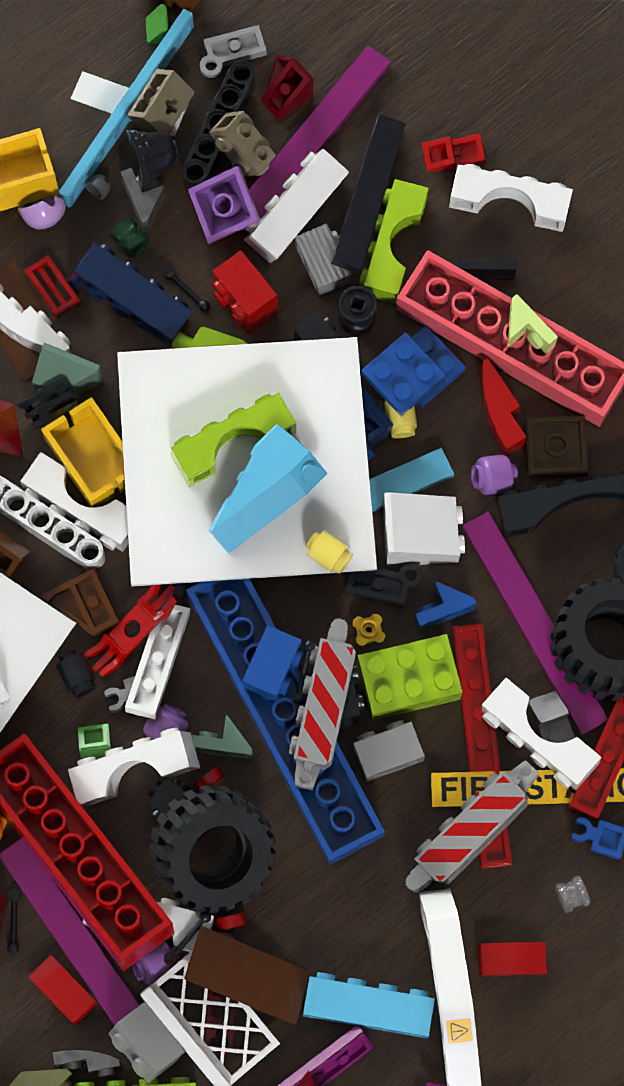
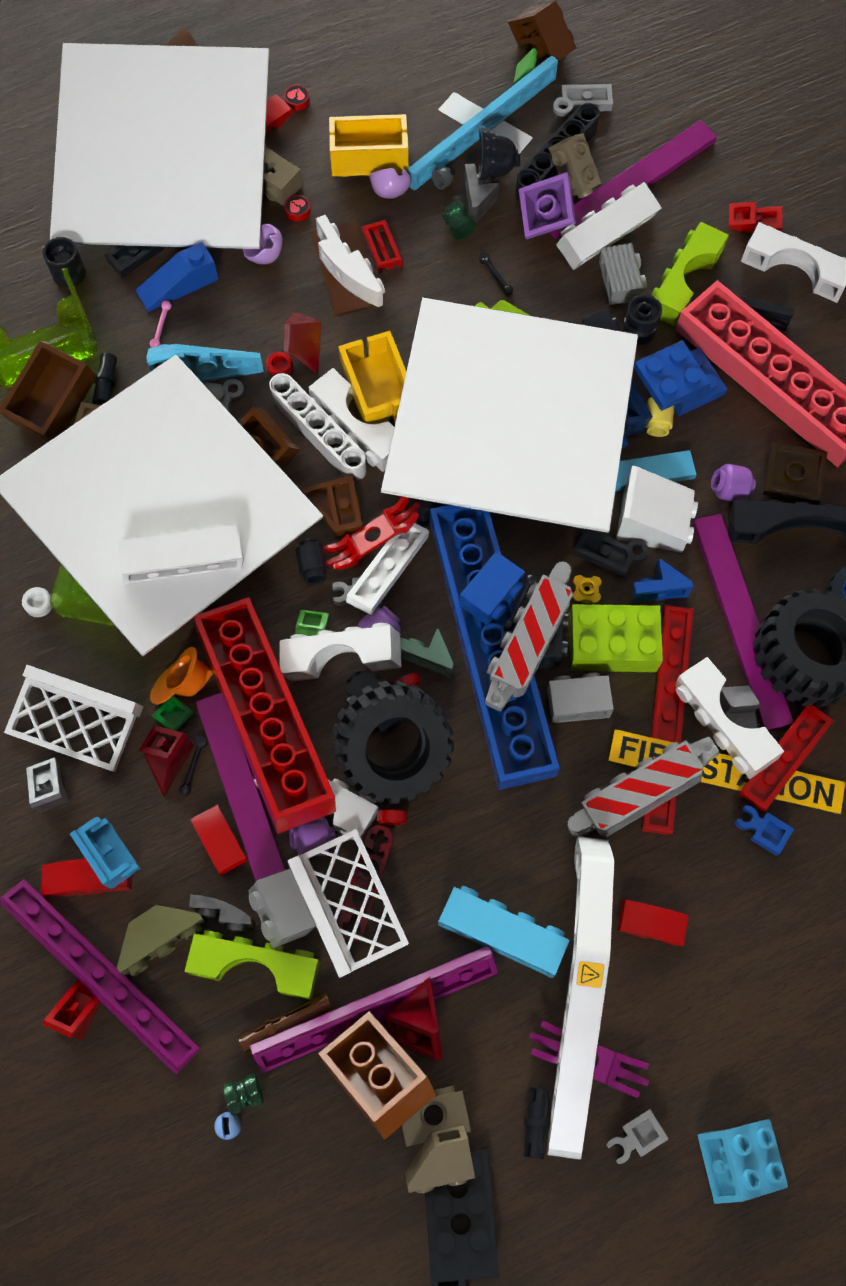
camera: 15 degrees right, 5 degrees down
(33, 412) = (335, 337): black tile -> none
(57, 364) = (372, 309): sand green slope -> none
(130, 293) = (445, 259): dark blue wedge -> none
(161, 102) = (516, 119): dark tan brick -> none
(171, 958) = (327, 834): black hinge -> none
(197, 454) = (539, 379): lime arch -> none
(244, 293) = (546, 281): red brick -> none
(247, 975) = (394, 870): reddish brown sticker -> none
(271, 483) = (530, 429): medium azure wedge -> none
(287, 86) = (625, 136): dark red slope -> none
(329, 551) = (569, 502): light yellow brick -> none
(368, 194) = (673, 230): black tile -> none
(500, 410) = (751, 431): red slope -> none
(525, 320) = (796, 354): yellowish green slope -> none
(572, 894) = (725, 876): clear wheel -> none

